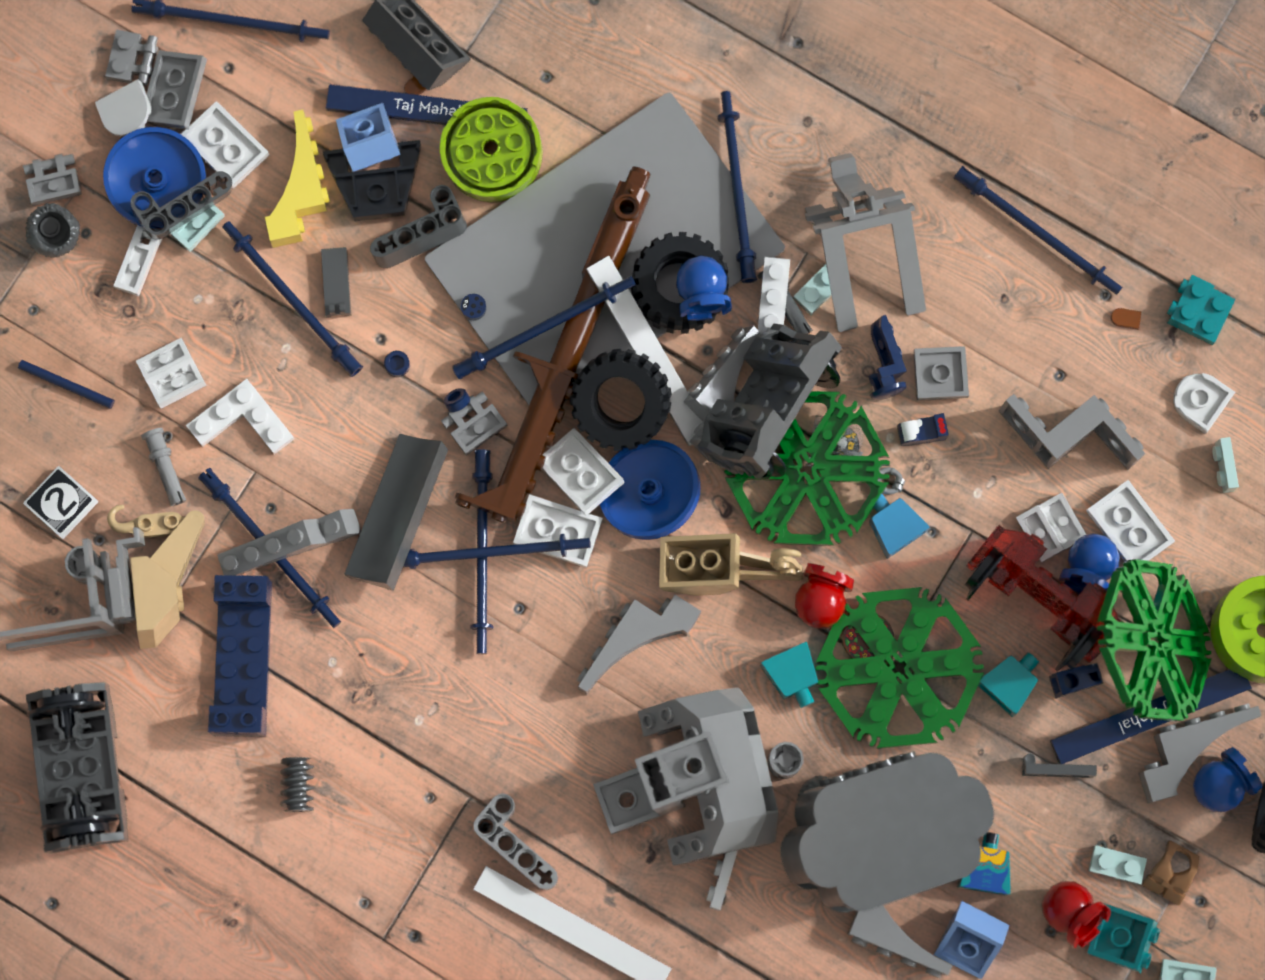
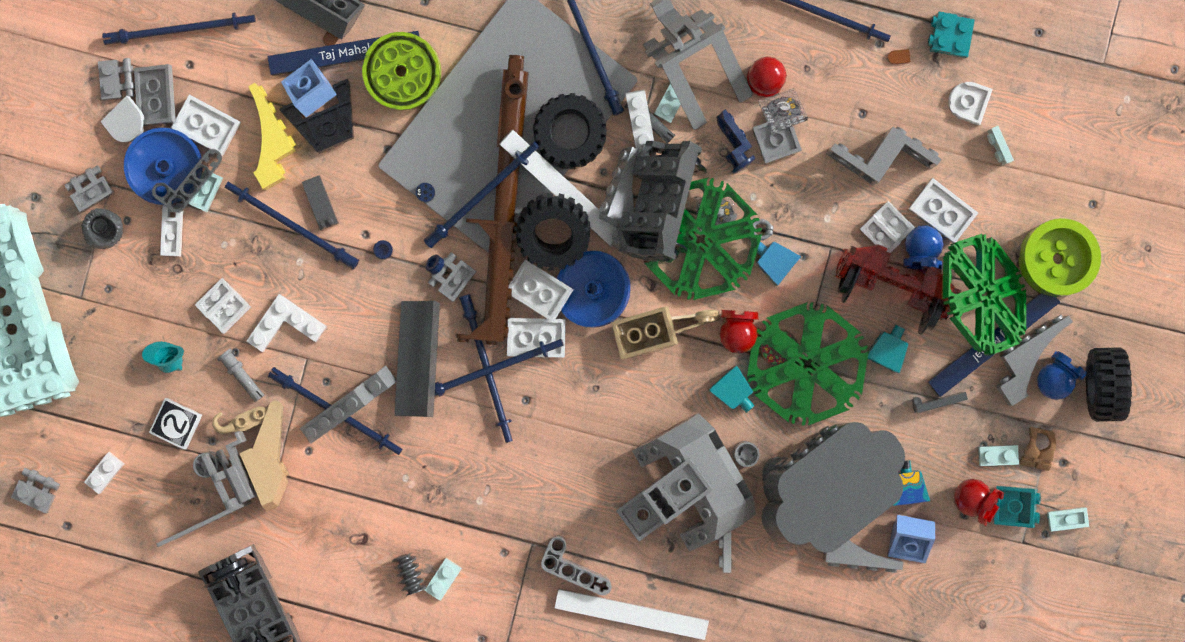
camera: 15 degrees left, 10 degrees up
(66, 384) = (150, 336): dark blue bar -> none
(76, 413) = (164, 356): none -> teal piece
(241, 656) = (340, 496): dark blue plate -> none
(339, 807) = (443, 579): none -> light aqua plate
(417, 231) = (367, 147): dark grey beam -> none
(636, 629) = (613, 391): light grey arch -> none
(702, 286) = (588, 134): blue tile -> none
(923, 430) = (775, 185): dark blue leg -> none
(950, 291) = (766, 76): none -> red tile
(959, 339) = (783, 110): none -> clear tile
(1075, 680) = (932, 337): dark blue leg -> none

